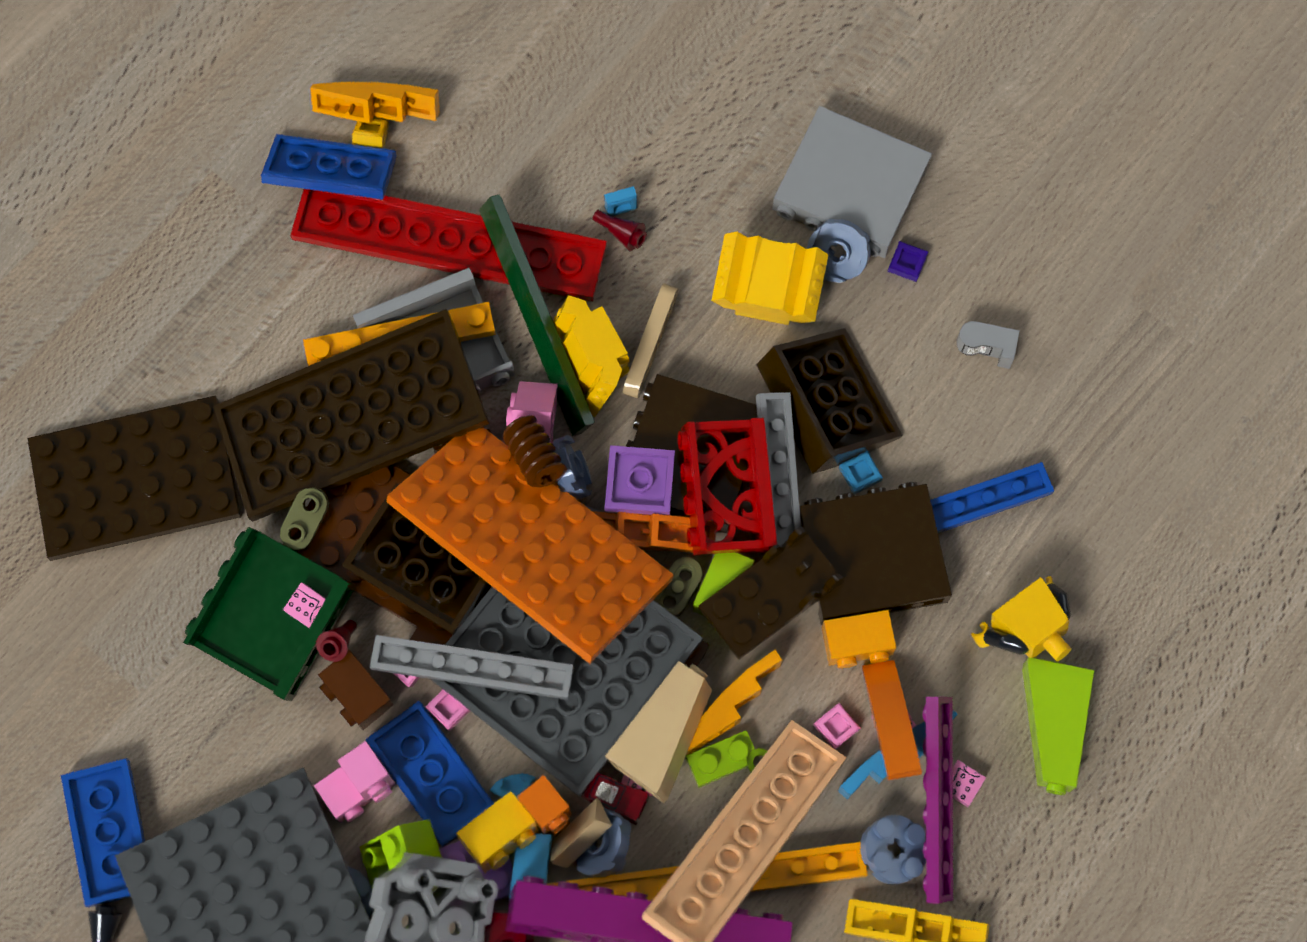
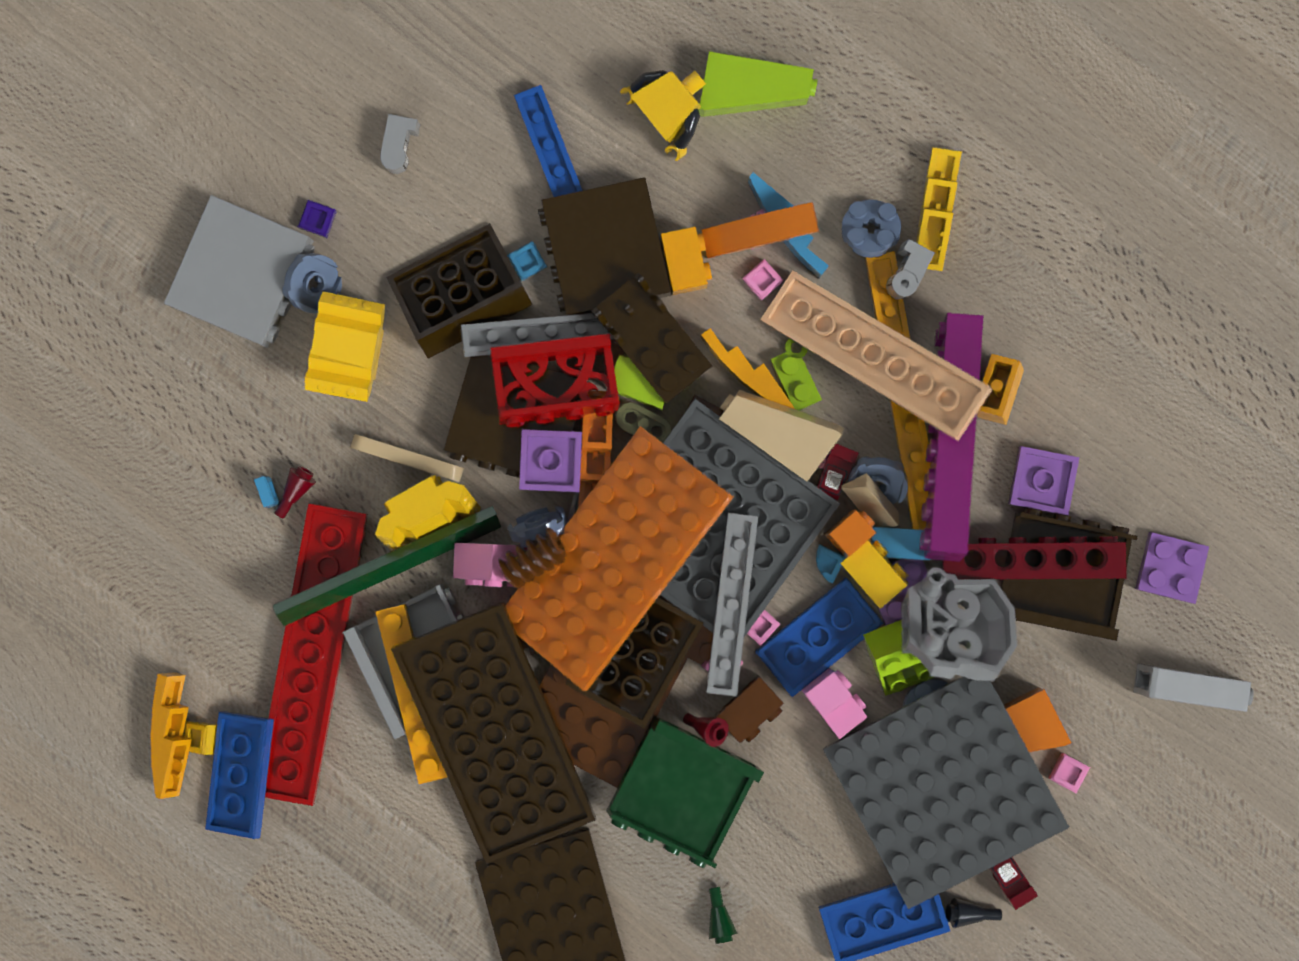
camera: 90 degrees left, 15 degrees up
(122, 650) = (720, 925): none -> dark green cone
(304, 604) = (676, 759): bright pink tile -> none
(306, 520) = (597, 767): olive plate -> none
(830, 881) = (910, 271): none -> light grey leg
(939, 799) = (837, 188): magenta plate -> none
(965, 783) = (809, 169): bright pink tile -> none

